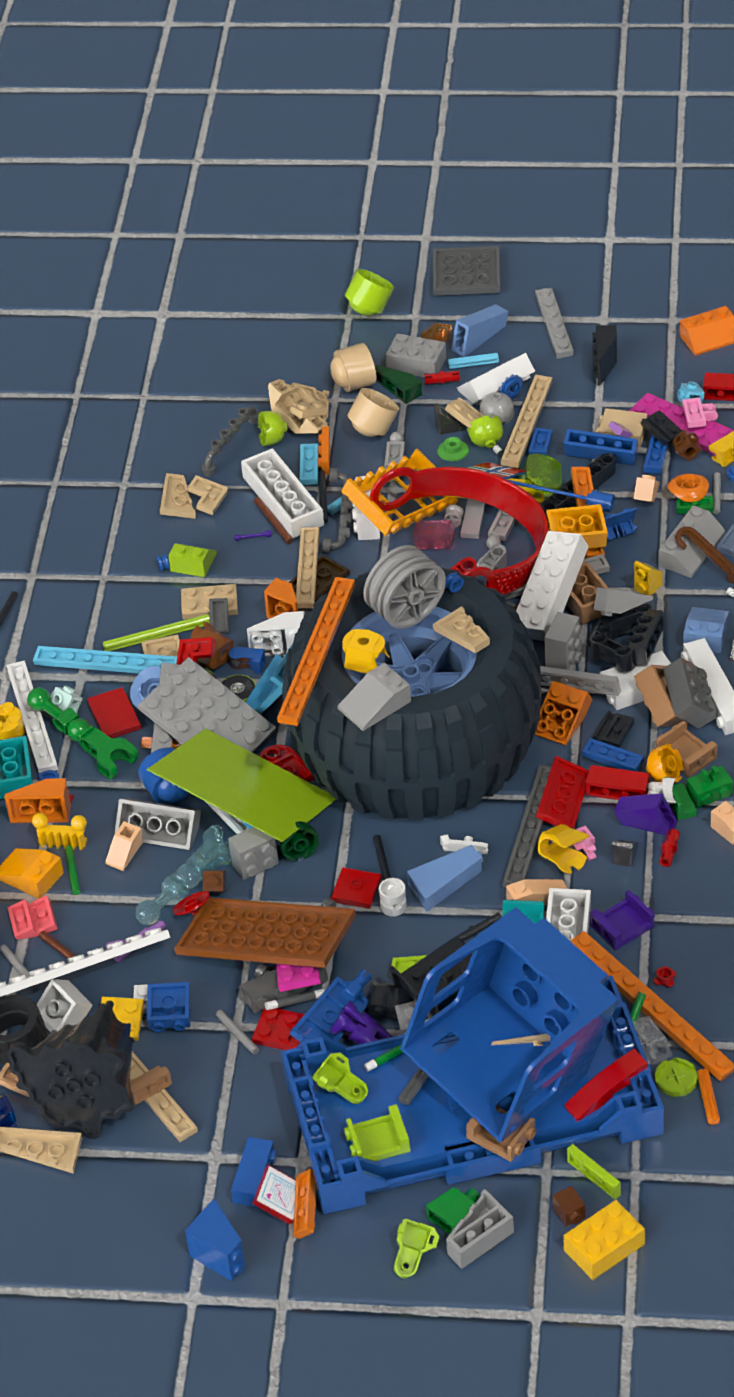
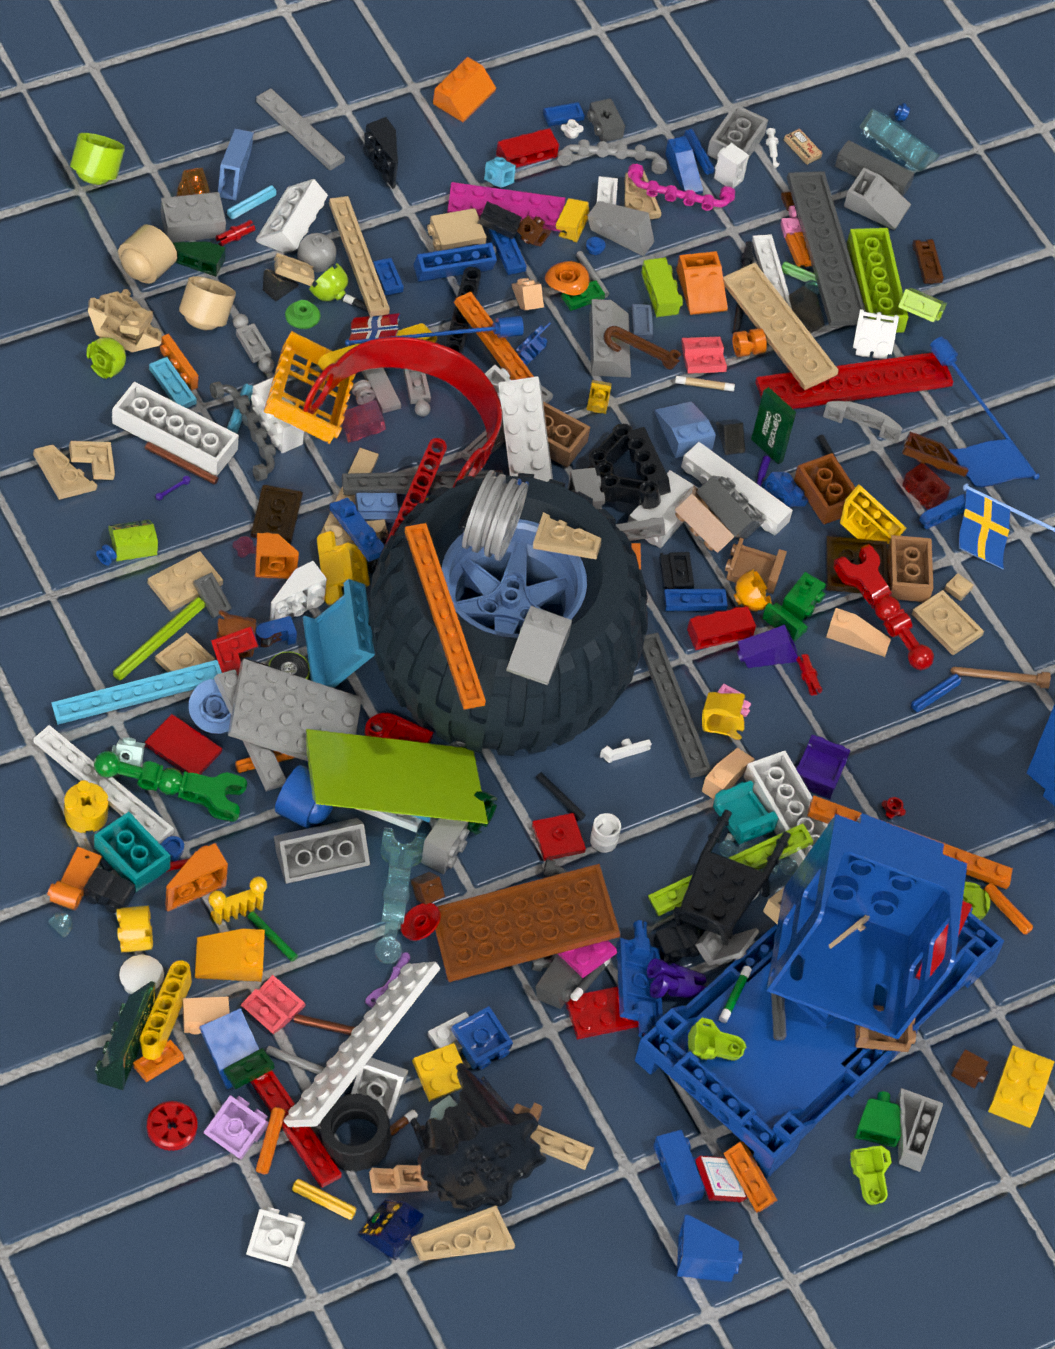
camera: 45 degrees left, 10 degrees up
(124, 845) = (311, 889): light nougat slope -> none
(237, 1032) = (548, 1031): light grey bar -> none
(244, 414) = (70, 349): dark grey bar -> none
(307, 567) = (258, 500): tan tile -> none
(323, 495) = (206, 408): black bar -> none
(362, 649) = (497, 607): yellow piece -> none
(378, 1137) = (785, 1082): lime panel -> none
(443, 876) = (631, 792): medium blue slope -> none
(466, 270) = (168, 95): dark grey plate -> none
(494, 558) = (439, 430): light grey piece -> none
(515, 384) = (318, 221): blue gear -> none
(543, 472) = (420, 311): clear neon green tile -> none
(562, 793) = (680, 658): red tile -> none
(580, 520) = (510, 361): light orange slope -> none
(593, 1172) = (967, 1026): lime tile -> none
(616, 601) = (599, 432): light grey slope -> none
(620, 430) = (468, 237): medium lavender tile -> none
(623, 852) = (774, 695): clear smoke slope -> none
(664, 787) = (764, 620): white piece -> none
(698, 413) = (520, 192): bright pink hinge -> none

